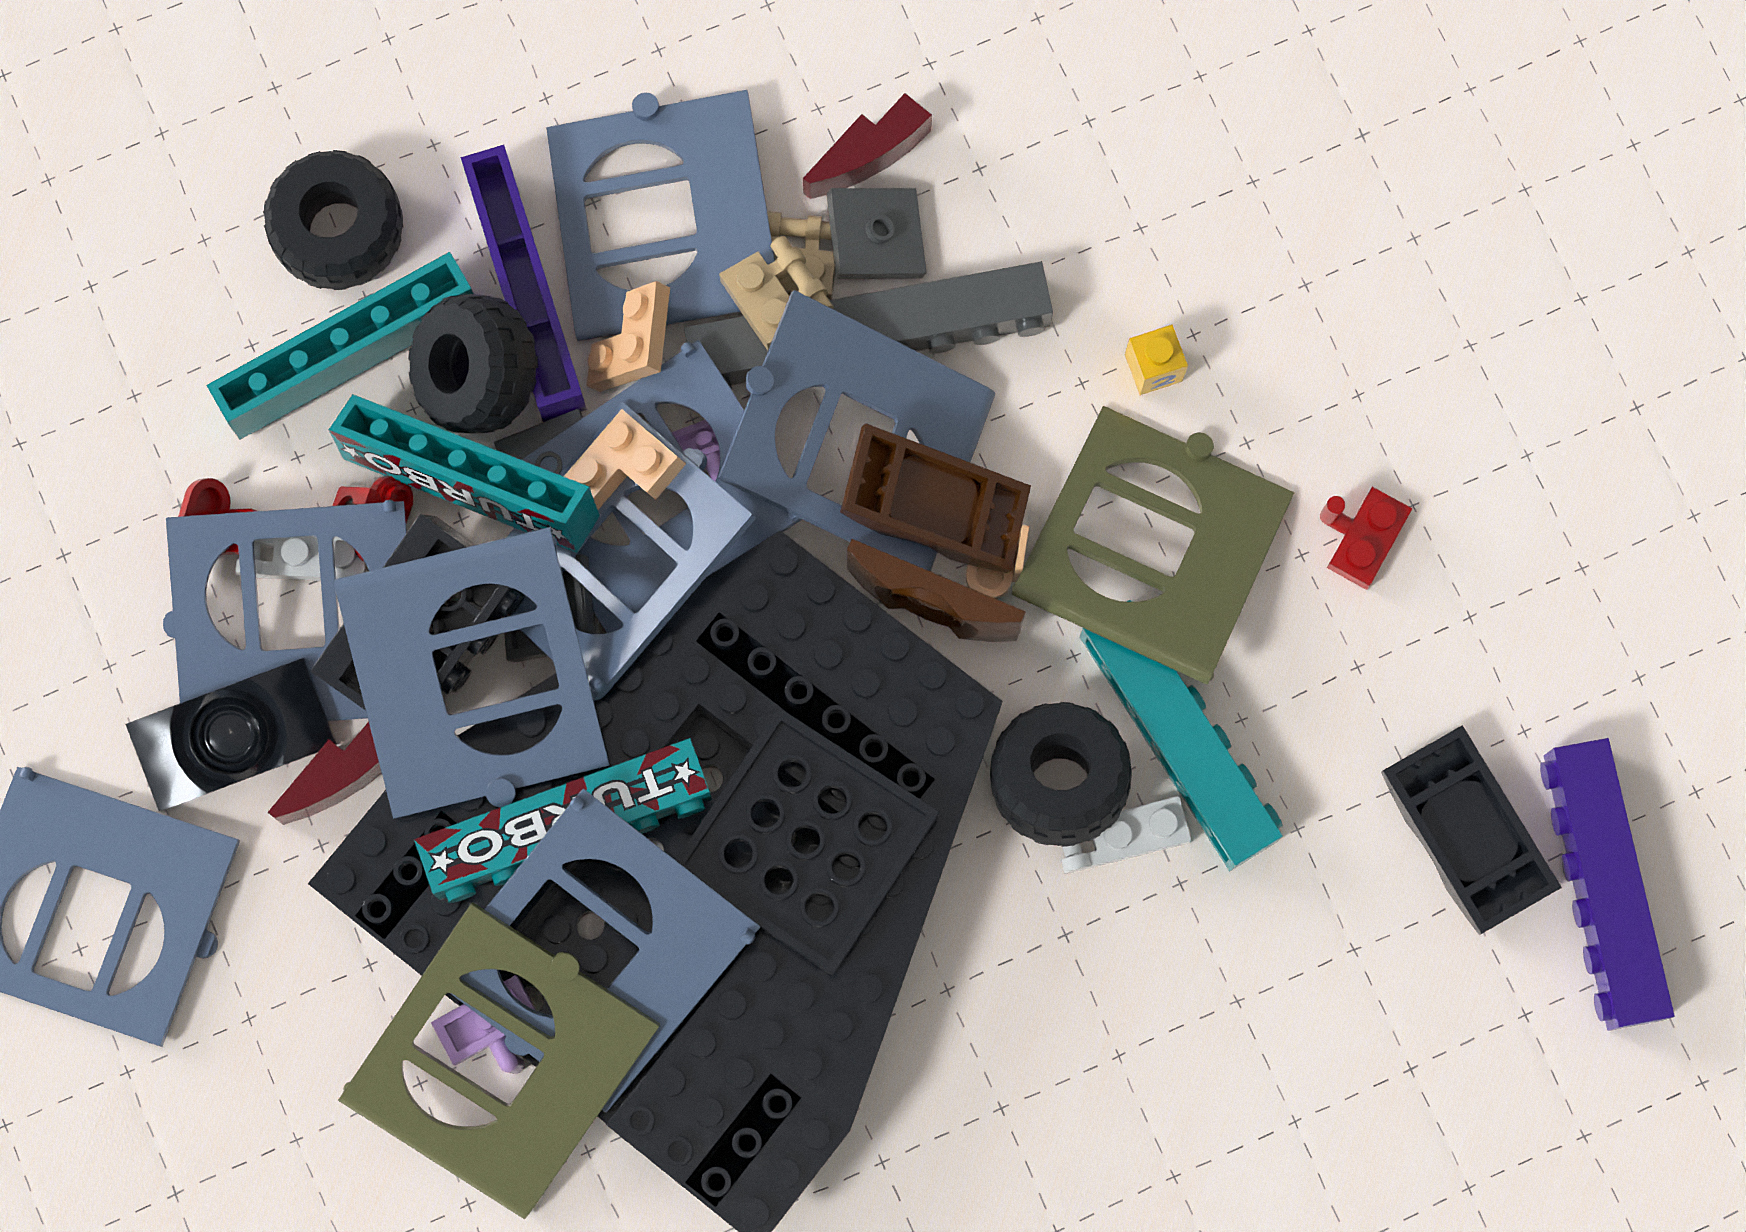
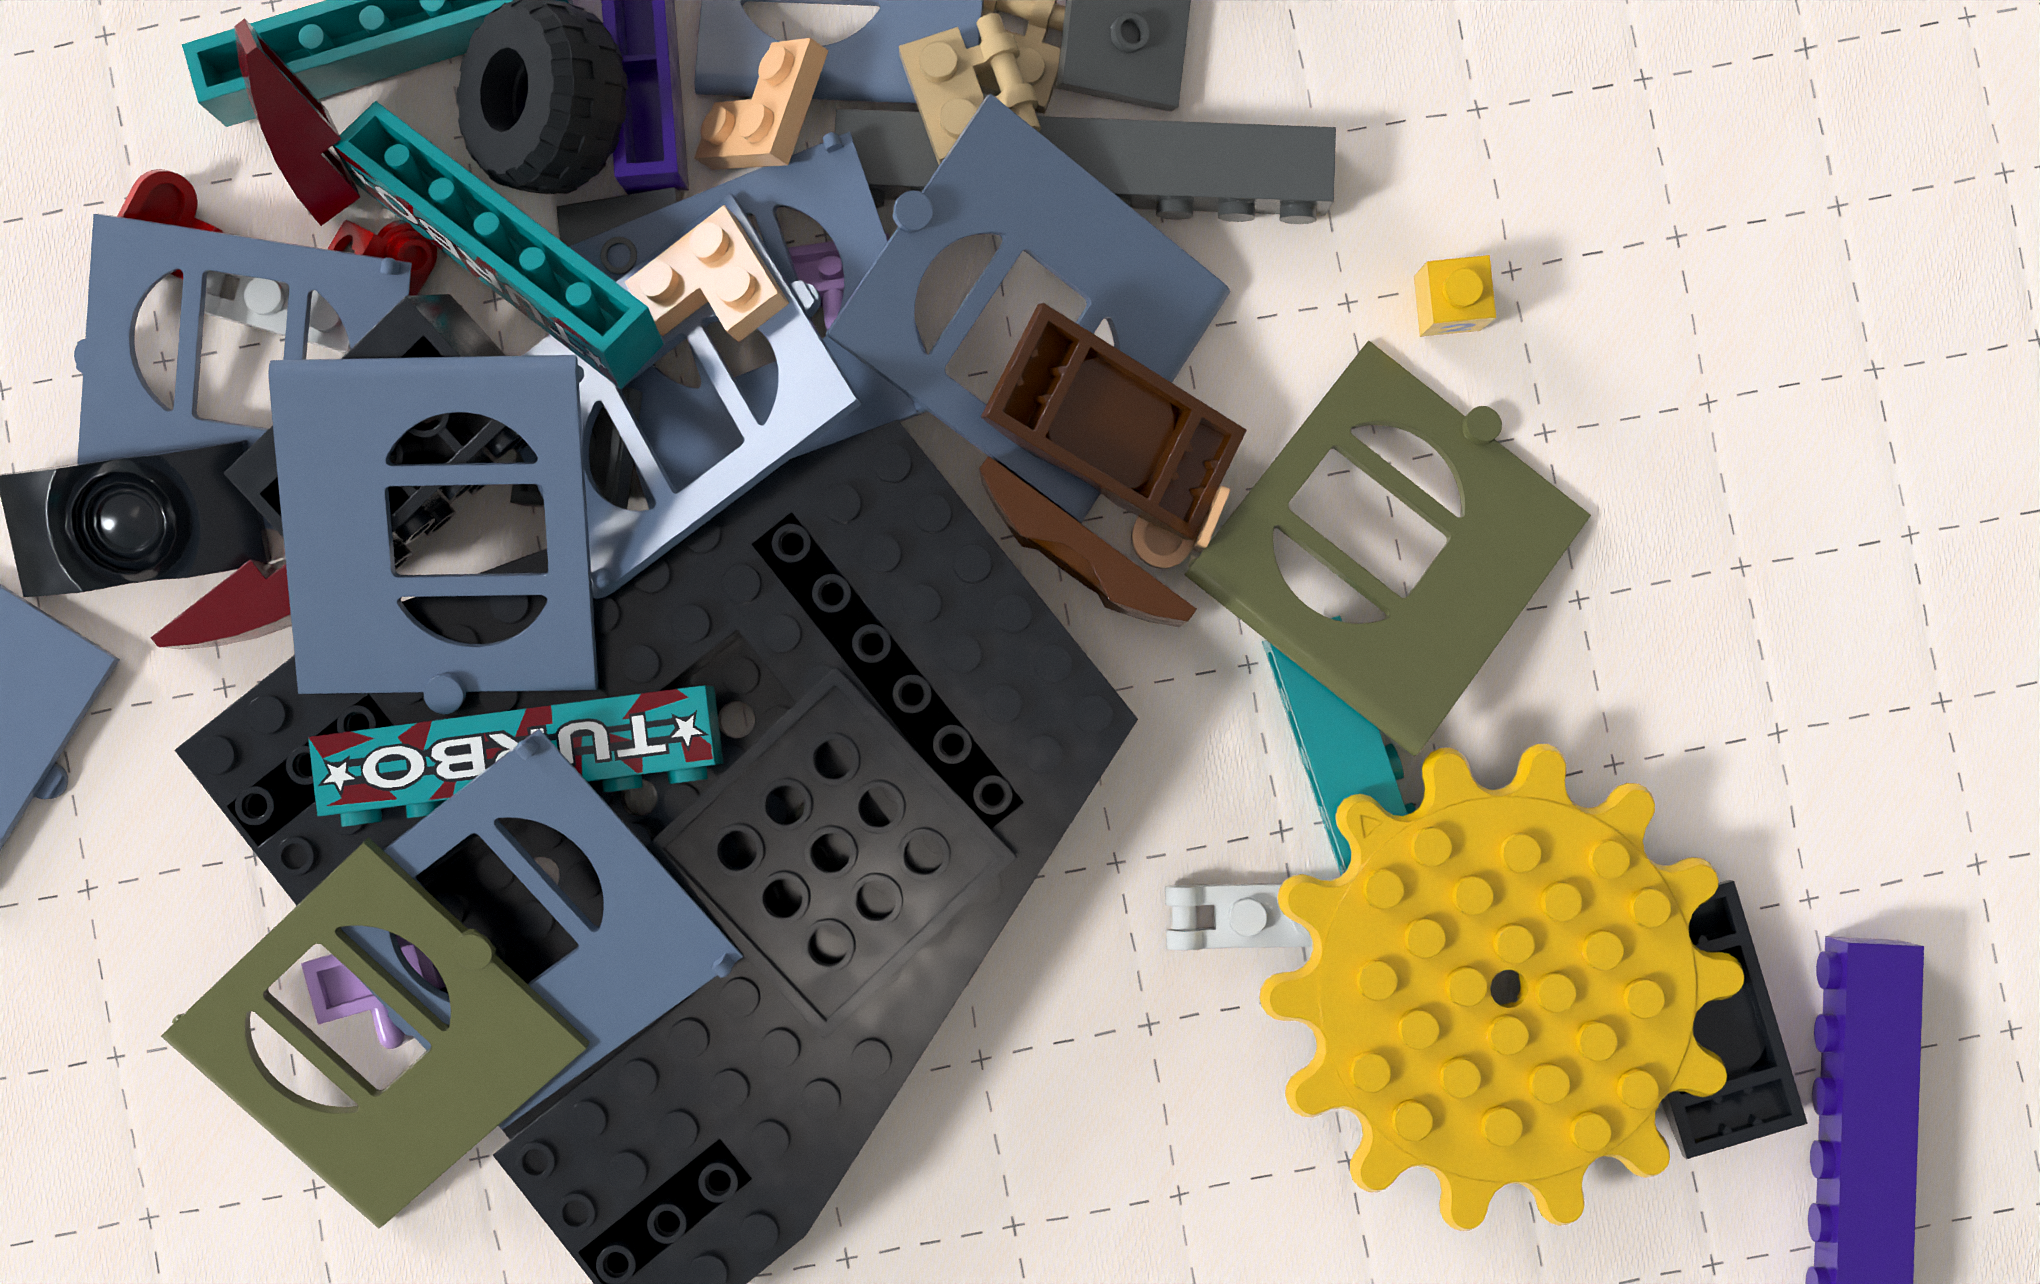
camera: 15 degrees right, 10 degrees up
(298, 426) = (294, 128): none -> dark red slope
(1060, 733) = (1206, 768): black tyre -> none
(1244, 853) = (1409, 968): none -> yellow plate
(1366, 536) = (1670, 595): red plate -> none

